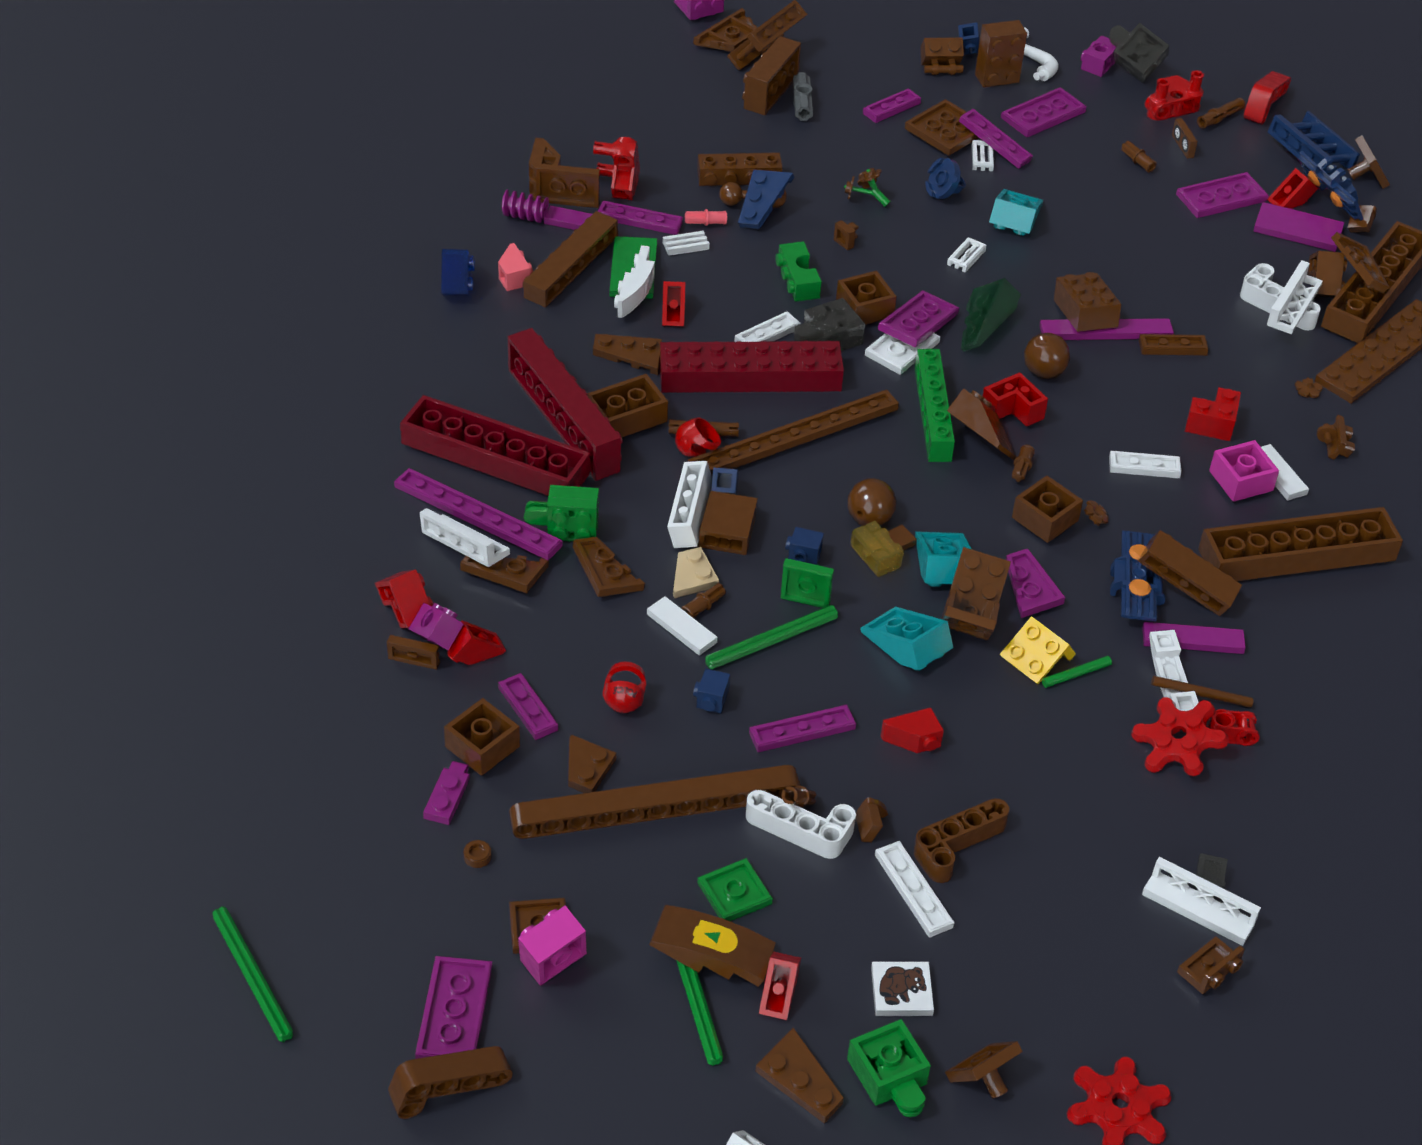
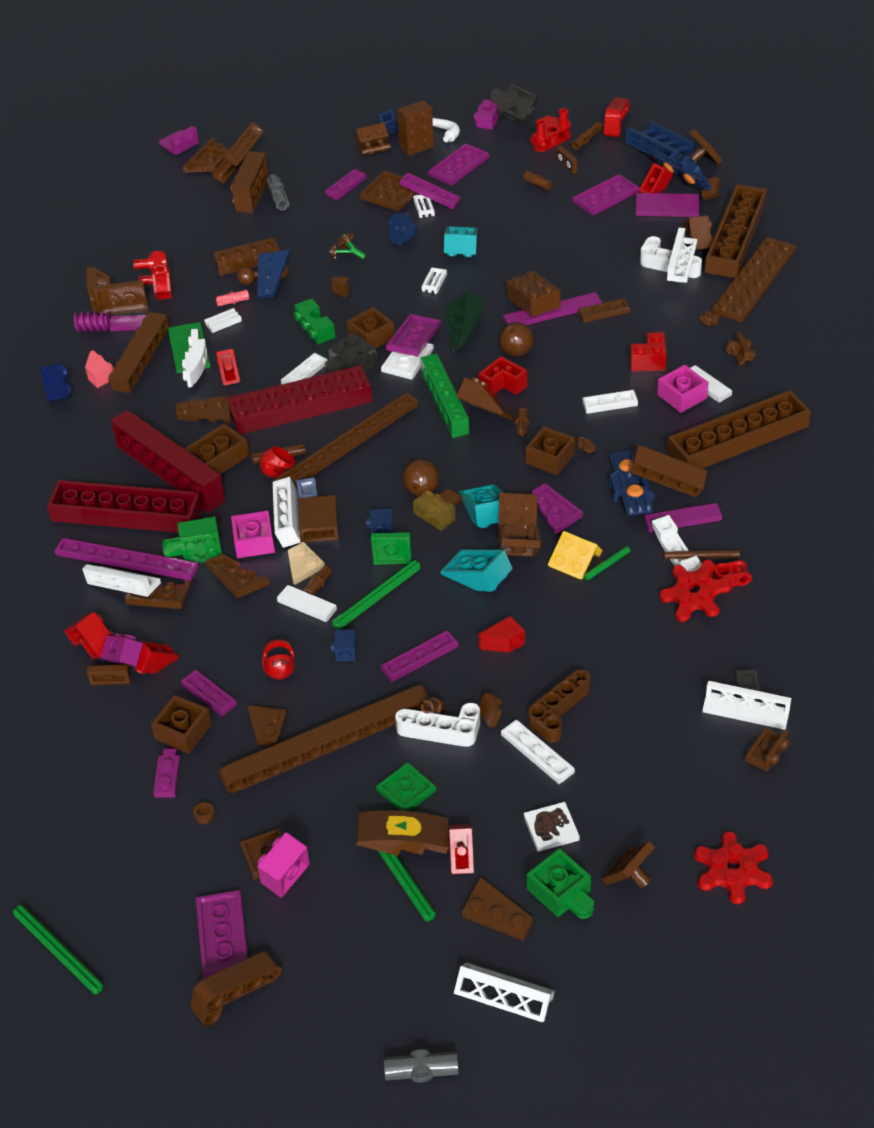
camera: 10 degrees left, 0 degrees up
(640, 521) = (252, 534): none -> dark pink brick
(642, 217) = (184, 309): magenta tile -> none
(1362, 261) = (722, 218): reddish brown wing -> none

